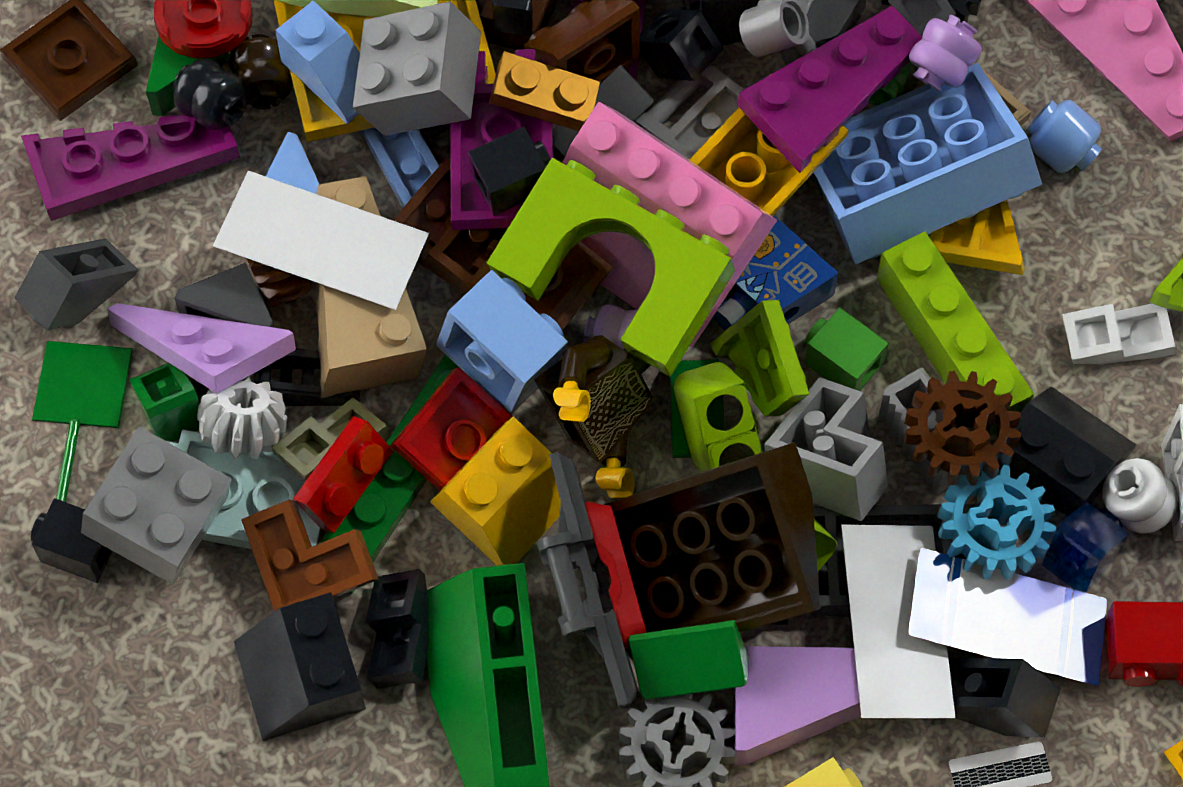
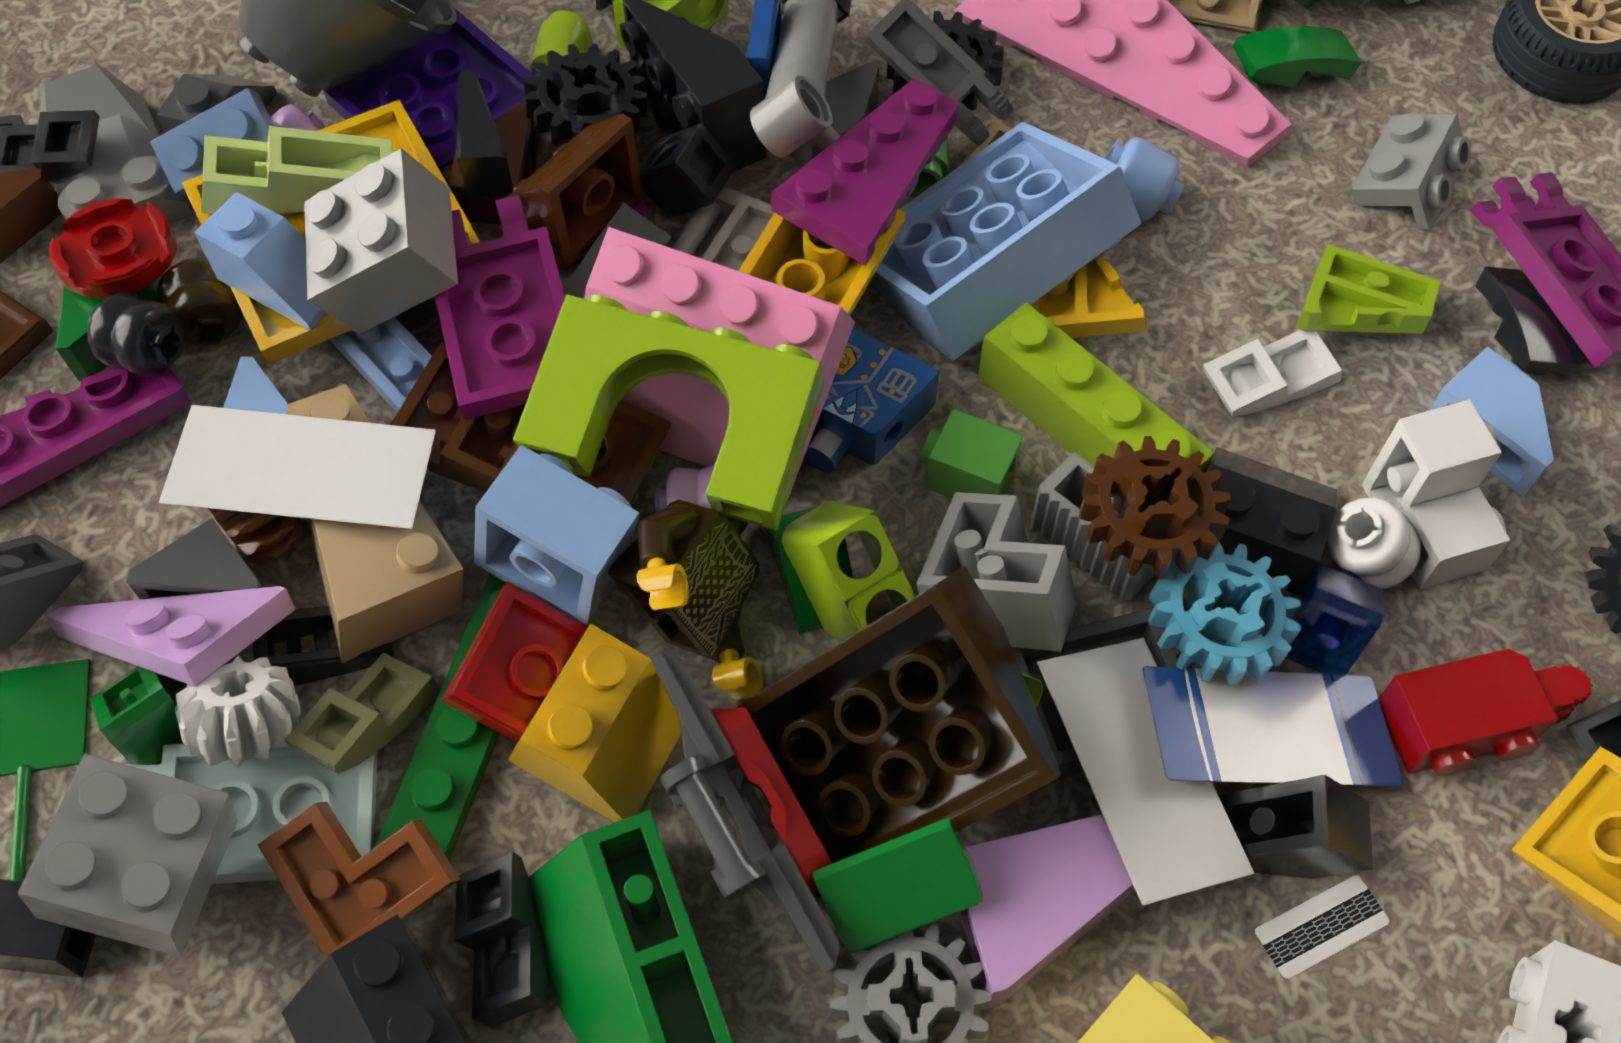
camera: 15 degrees left, 5 degrees down
(343, 474) = (385, 753): red plate -> none
(508, 169) = (513, 326): black brick -> none
(543, 91) = (538, 235): plate -> none
(765, 358) = (883, 475): lime wing -> none
(945, 52) = (989, 110): lavender piece -> none

